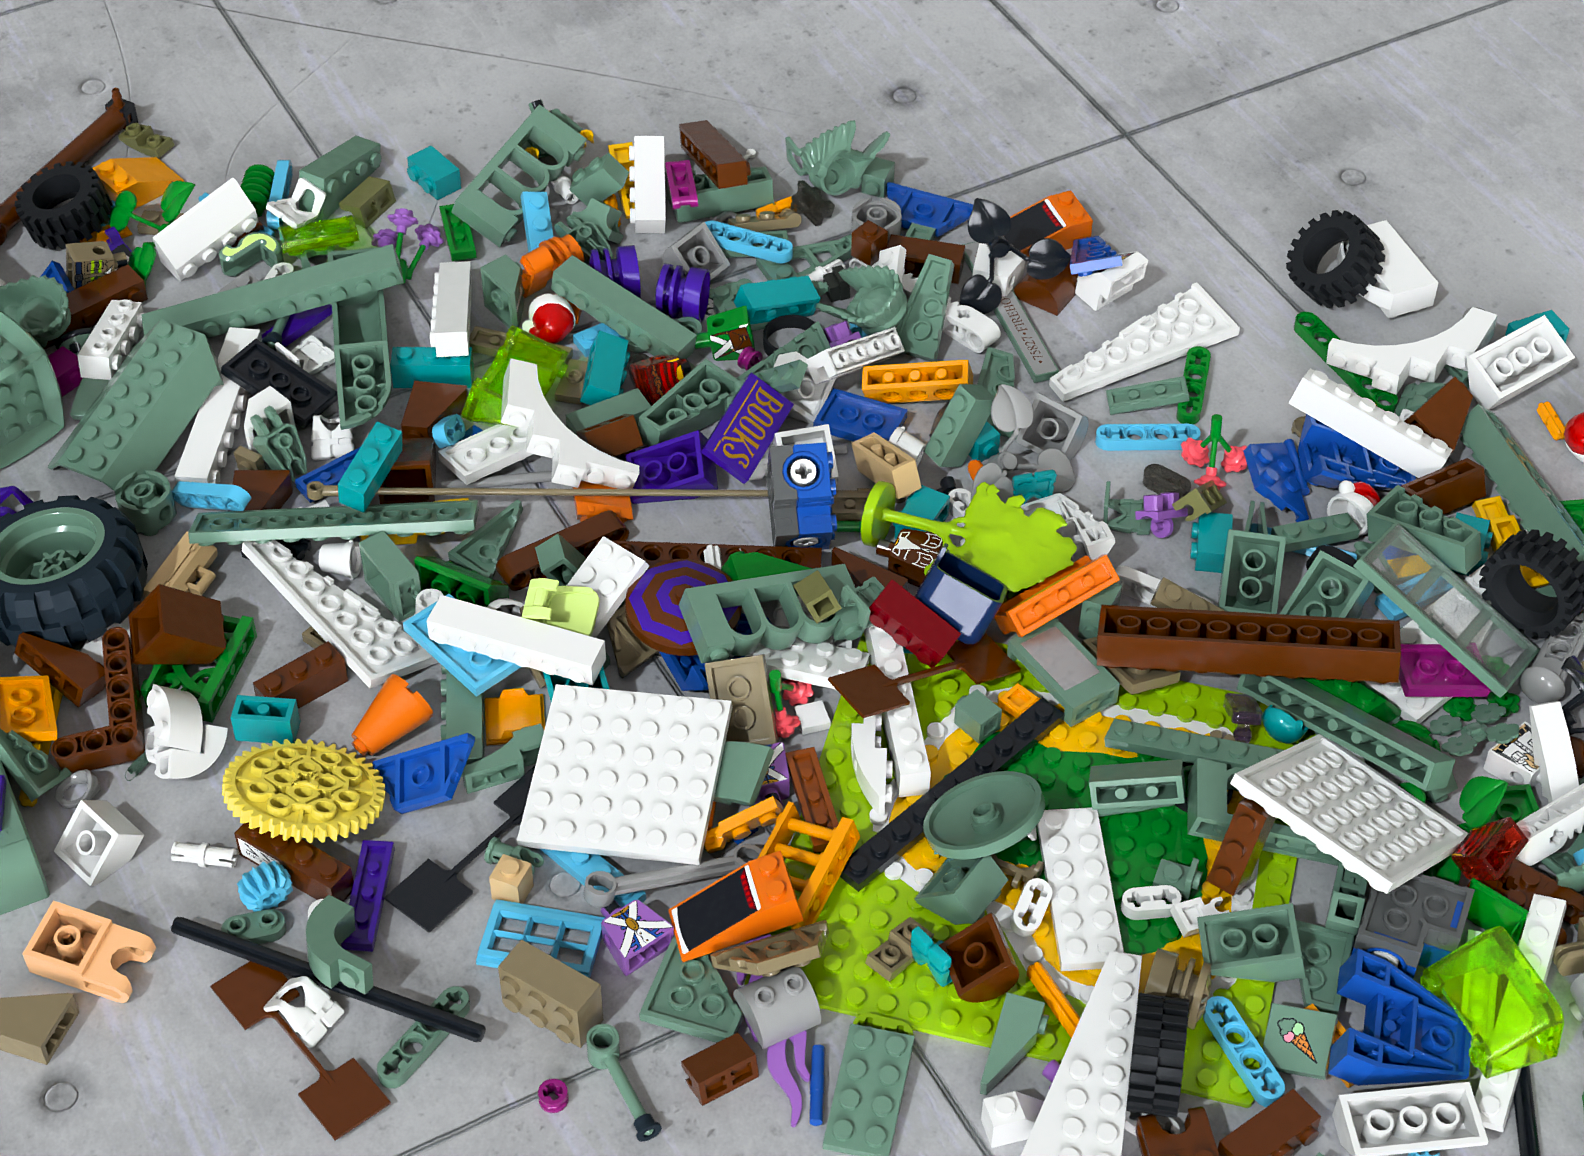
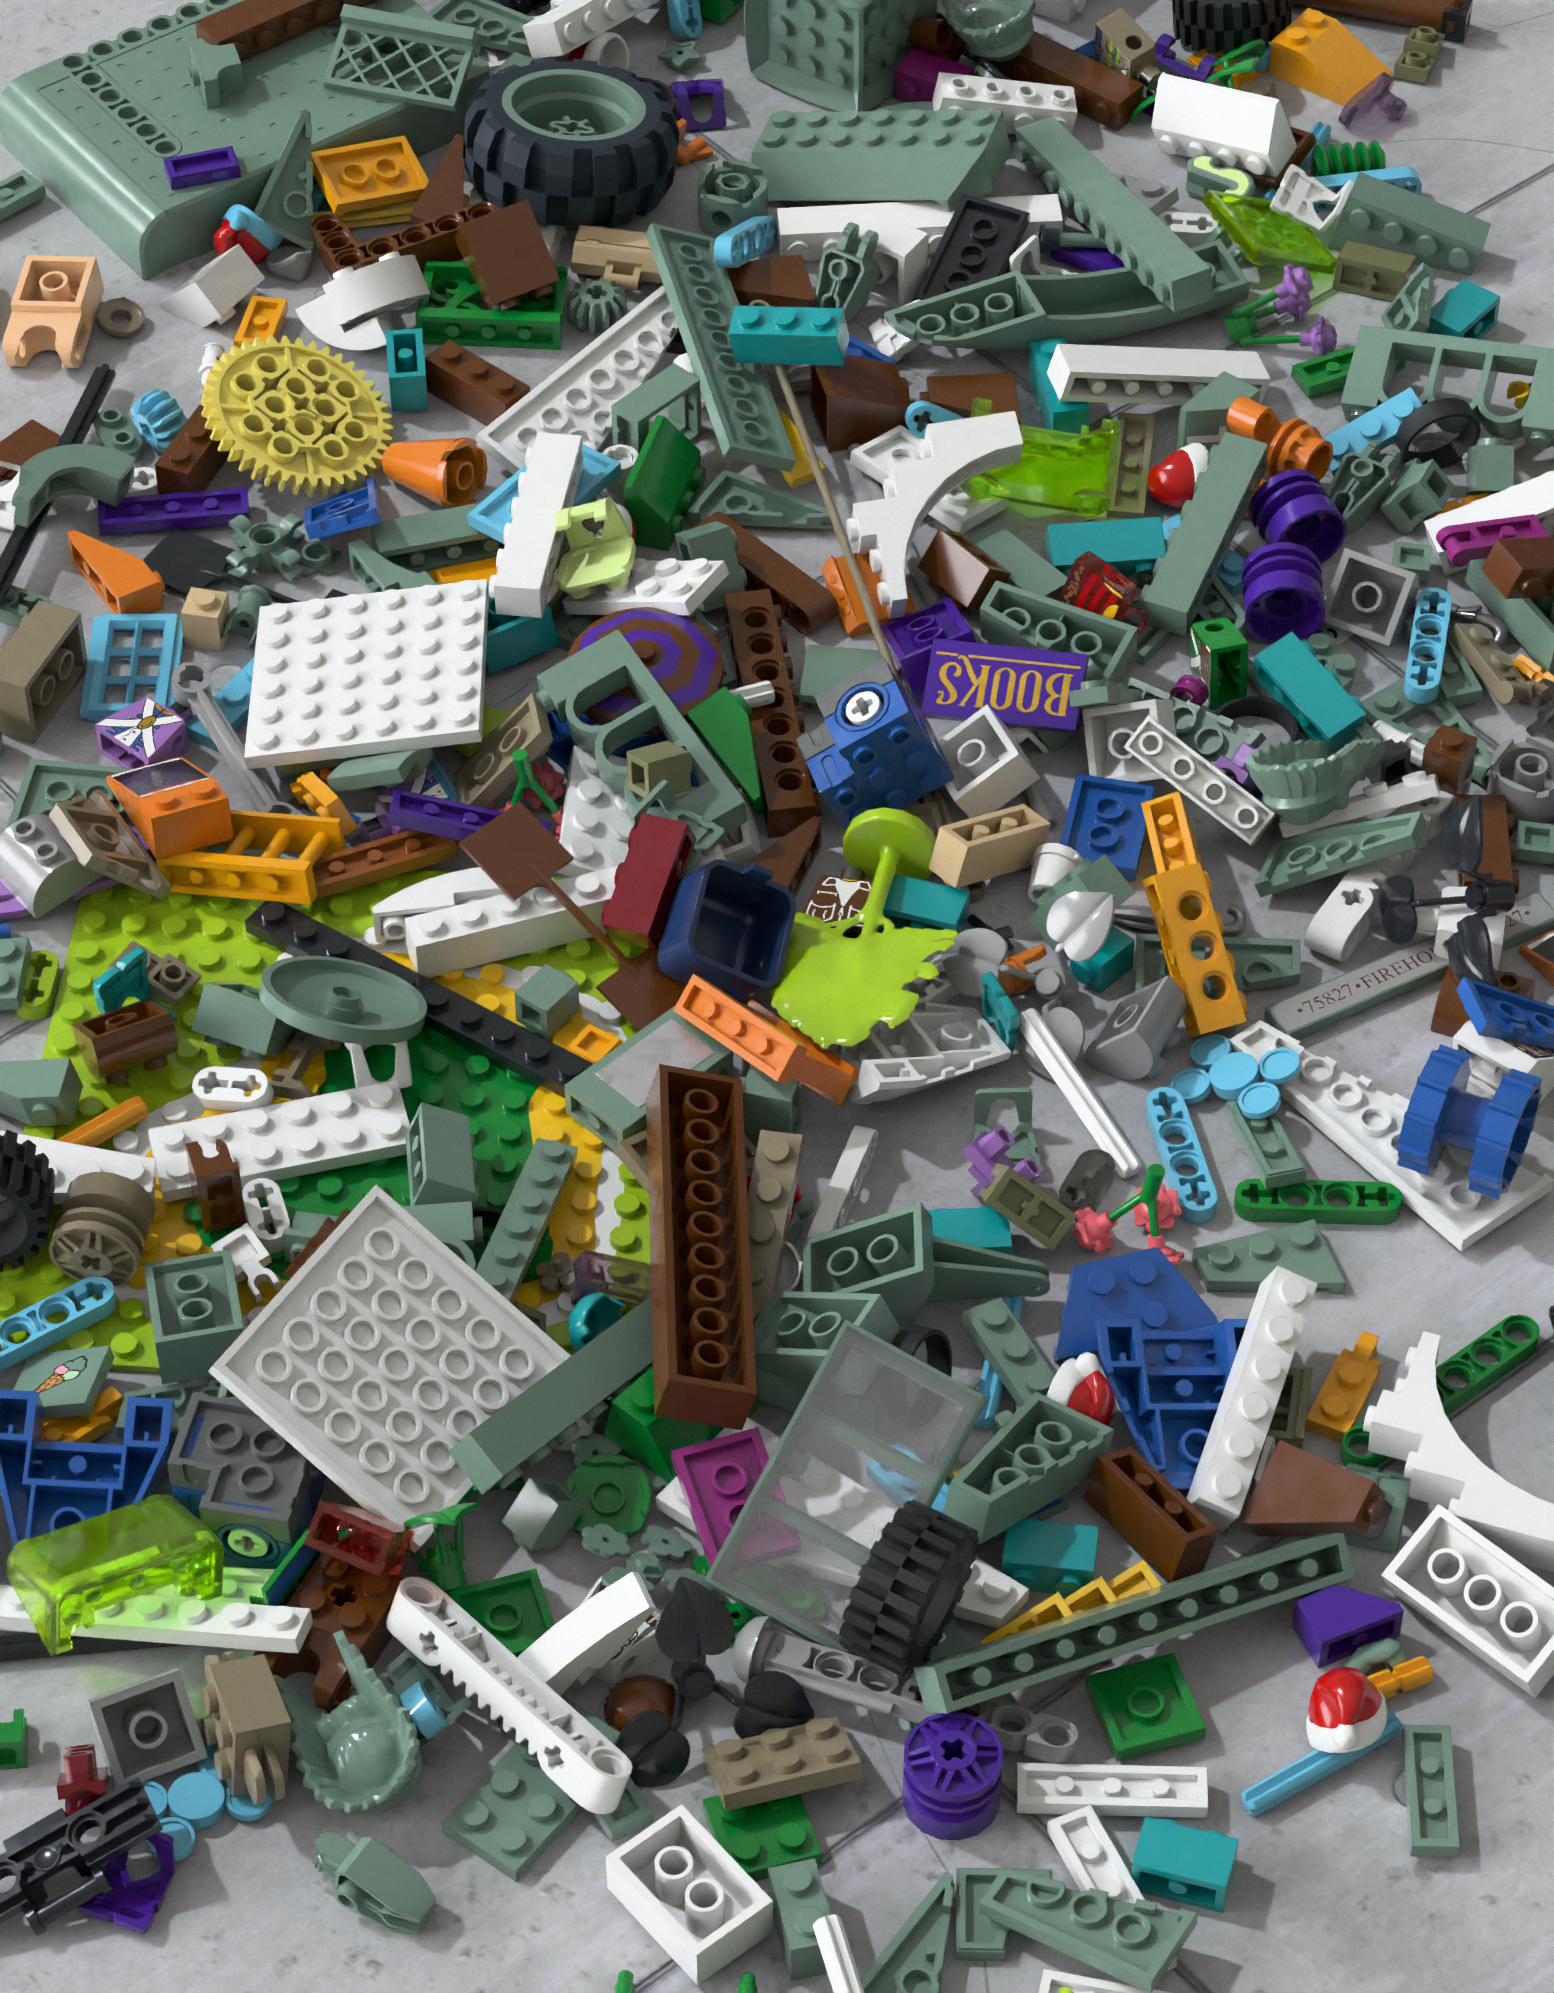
camera: 80 degrees right, 0 degrees up
(49, 807) = (249, 231): none -> piece
(104, 902) = (120, 307): none -> dark tan piece
(158, 814) = (262, 318): none -> light orange plate
(191, 168) = (1374, 94): none -> clear purple piece
(234, 597) = (596, 305): none -> sand green gear
(427, 187) = (1413, 303): none -> sand green wing
(436, 836) = (266, 547): none -> sand green pin
(440, 938) = (116, 576): none -> orange slope
(455, 817) = (318, 557): none -> sand green plate
(558, 195) = (1431, 413): none -> black tyre
(655, 240) = (1413, 558): none -> sand green plate
(683, 521) = (829, 666): none -> sand green slope
(800, 734) = (438, 815): none -> dark purple plate
(991, 369) = (1176, 936): none -> light orange brick
(1095, 396) = (1236, 1075): none -> medium azure piece
(1103, 466) = (1078, 1093): none -> white axle
(1143, 918) = (216, 1187): none -> reddish brown hinge
(1182, 287) = (1447, 1114): none -> blue piece
(1239, 411) = (1247, 1260): none -> sand green wing
(1522, 427) = (1341, 1620): none -> dark purple slope
(1535, 427) = (1381, 1651): none -> sand green arm

